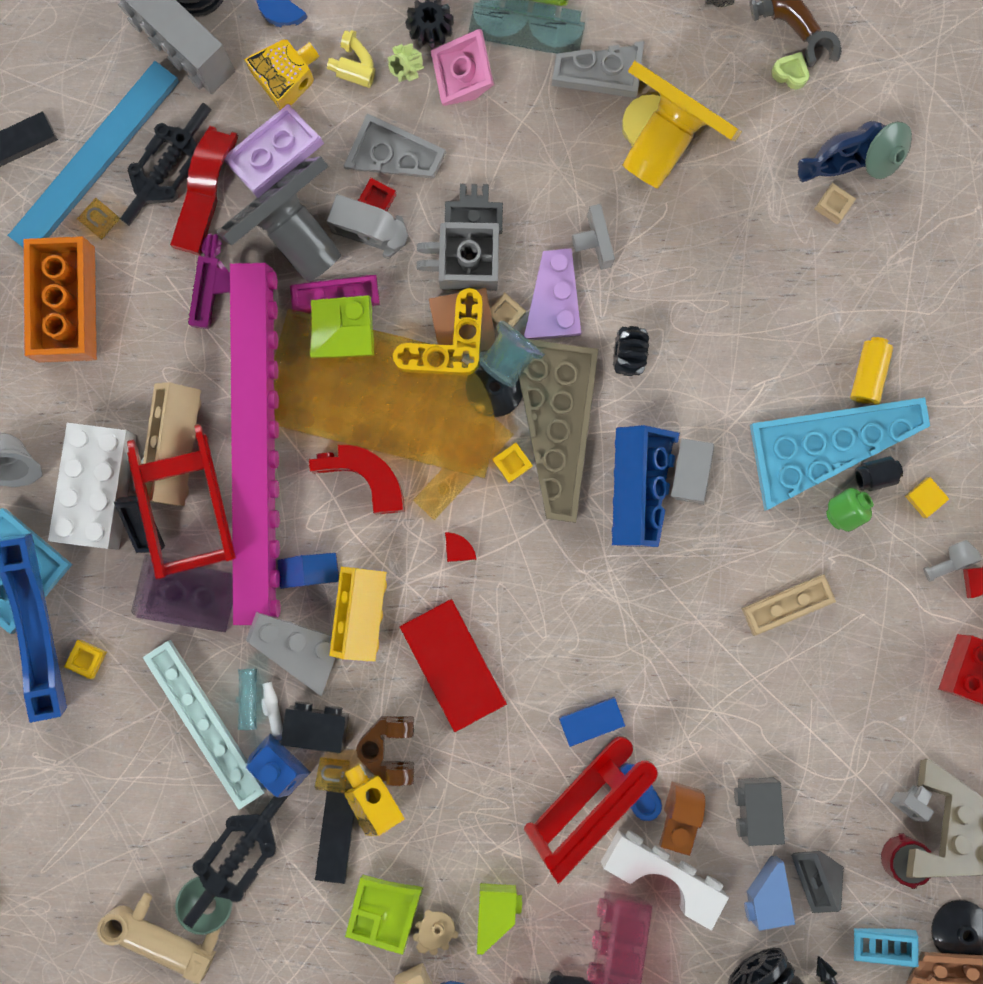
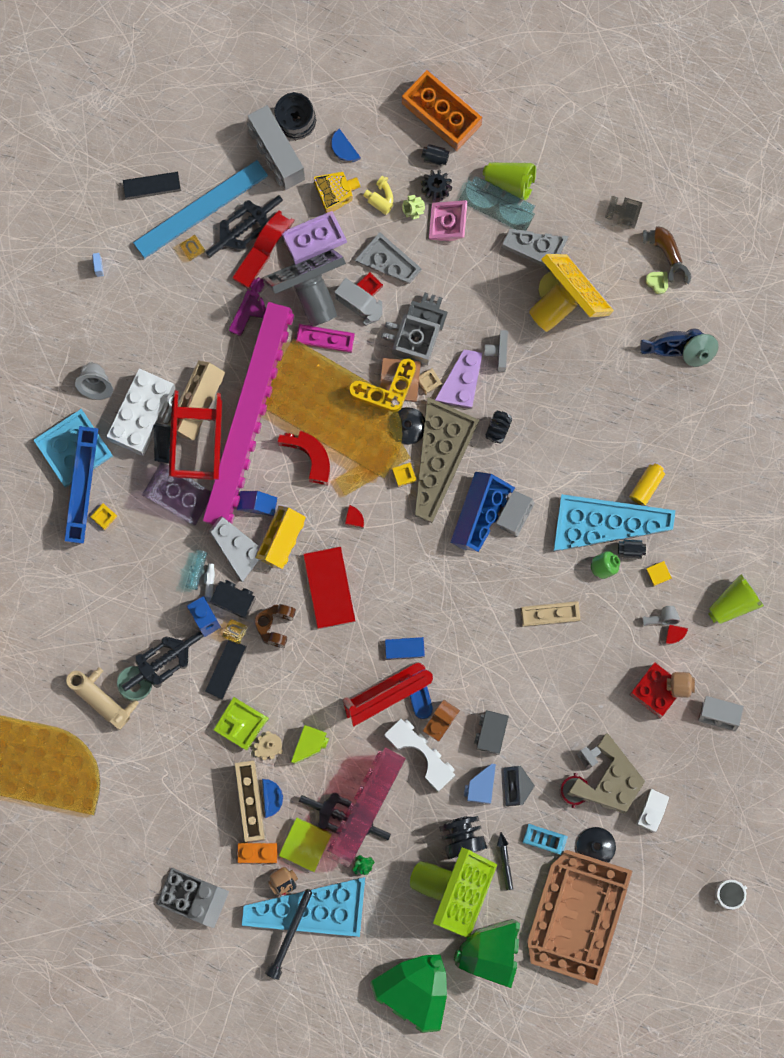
camera: 20 degrees right, 5 degrees down
(59, 299) = (155, 292): orange brick -> none
(204, 724) = (165, 577): light aqua plate -> none
(342, 327) = (324, 360): lime plate -> none
(380, 811) = (254, 652): yellow torso -> none
(509, 355) = (421, 407): clear light blue piece -> none
(835, 203) = (659, 373): tan tile -> none

